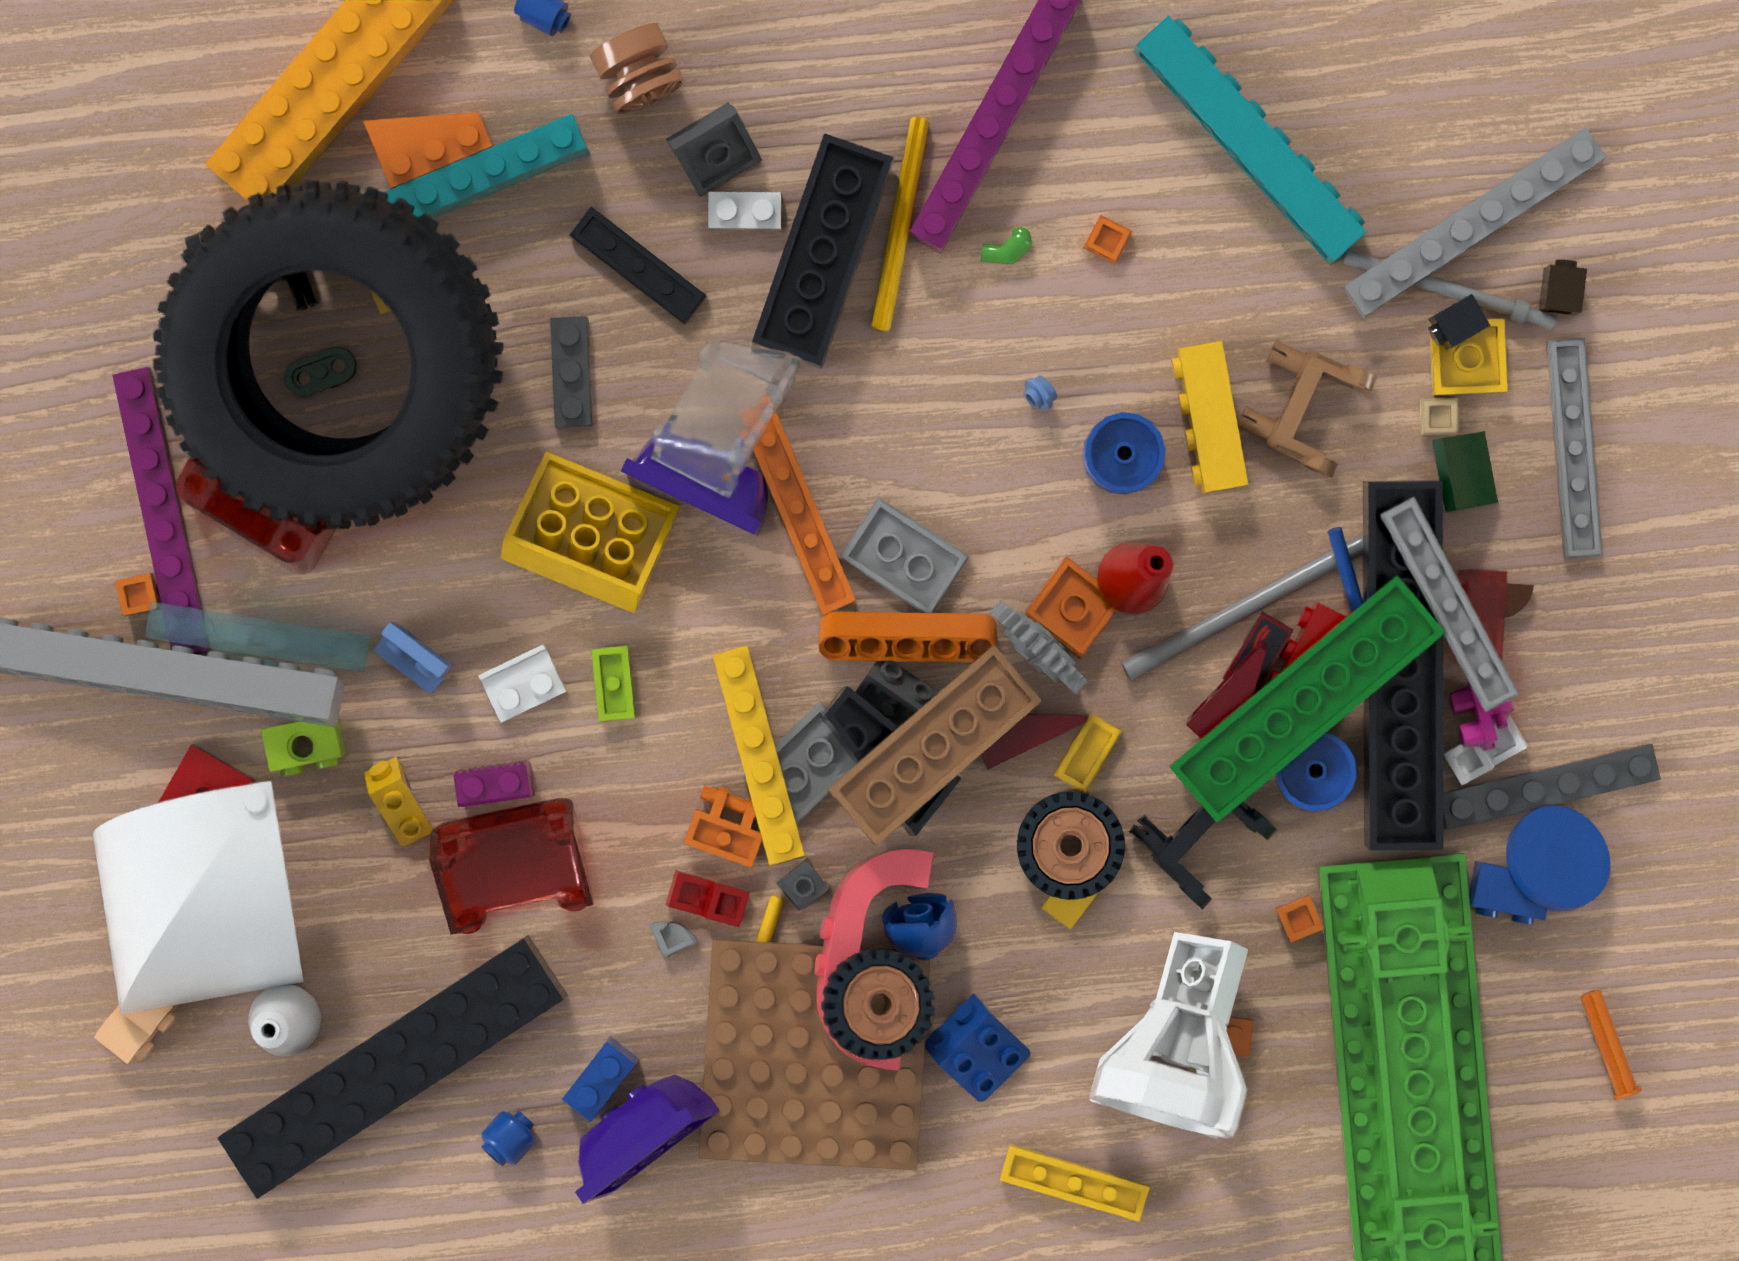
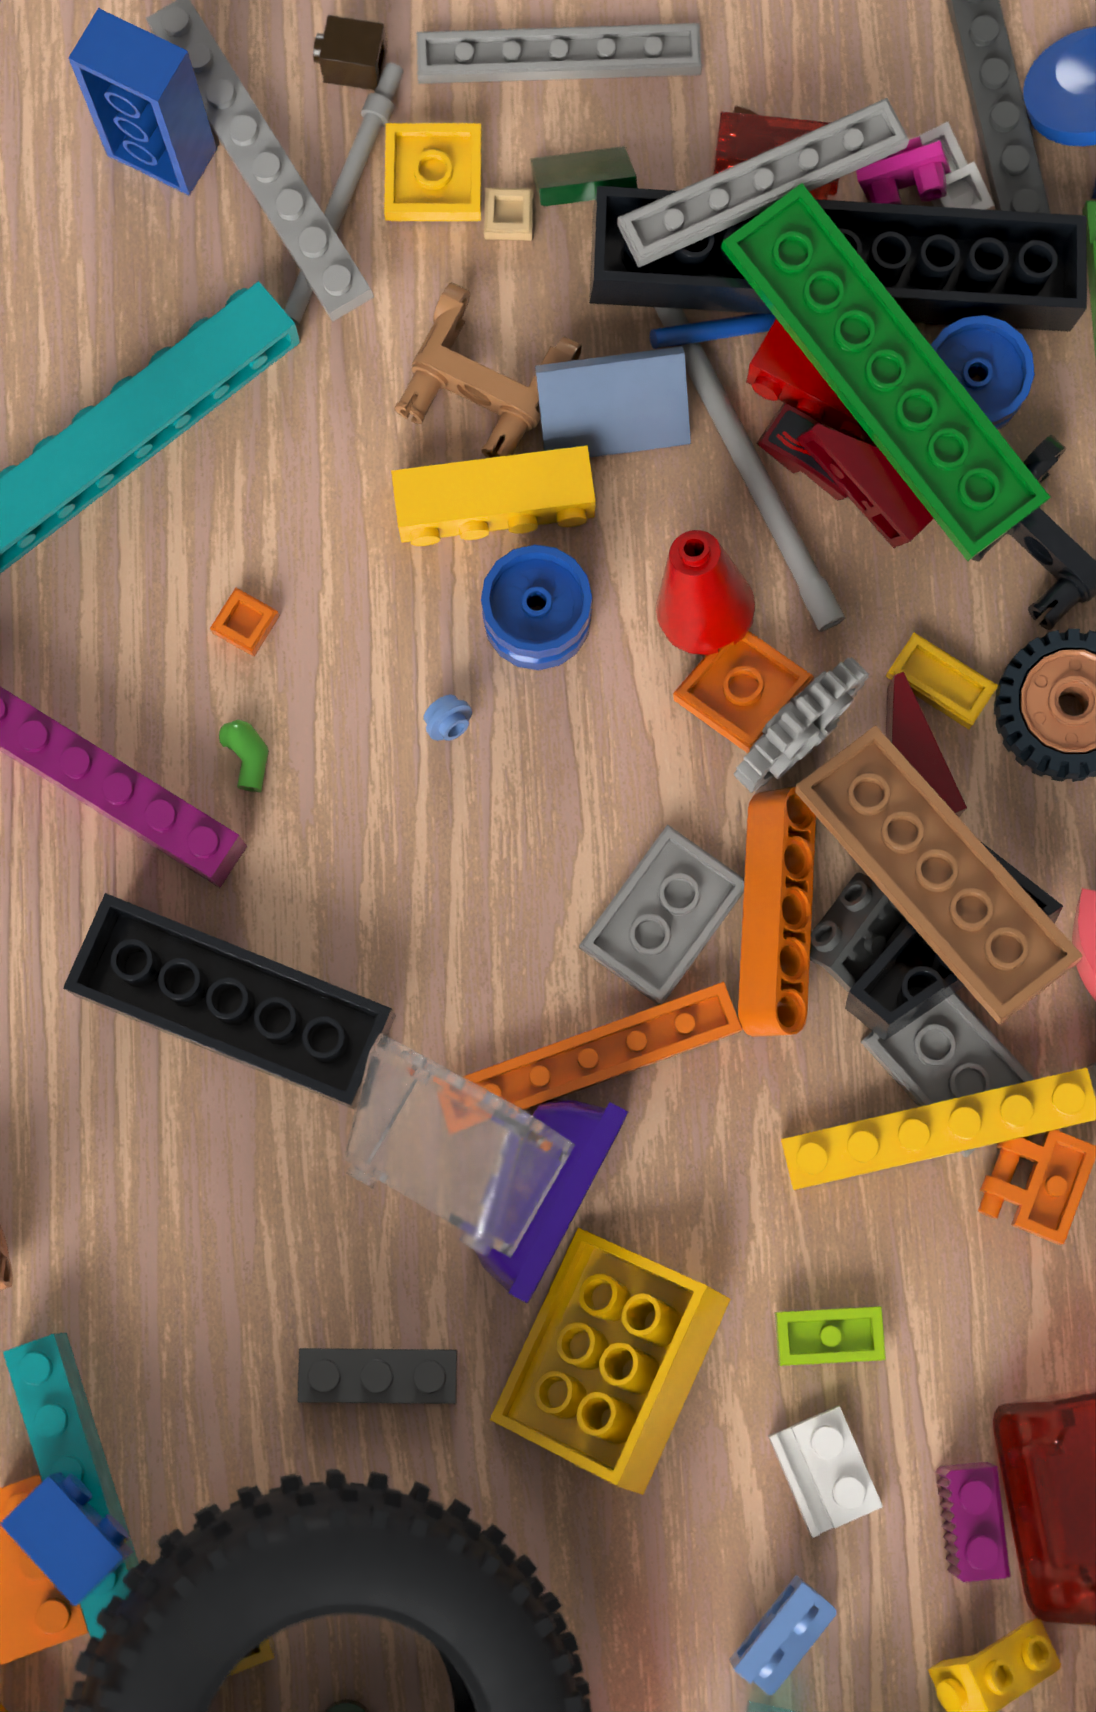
camera: 85 degrees left, 10 degrees down
(452, 171) = (68, 1536): none -> blue brick
(638, 265) = (231, 1271): black tile -> none
(714, 149) = (73, 1149): dark grey bracket -> none
(744, 210) = (166, 1113): white plate -> none
(900, 224) = (202, 897): yellow axle -> none
(1283, 502) = (615, 402): none -> sand blue tile
(1457, 323) = (387, 171): black brick -> none
(1493, 137) = (144, 101): none -> blue brick

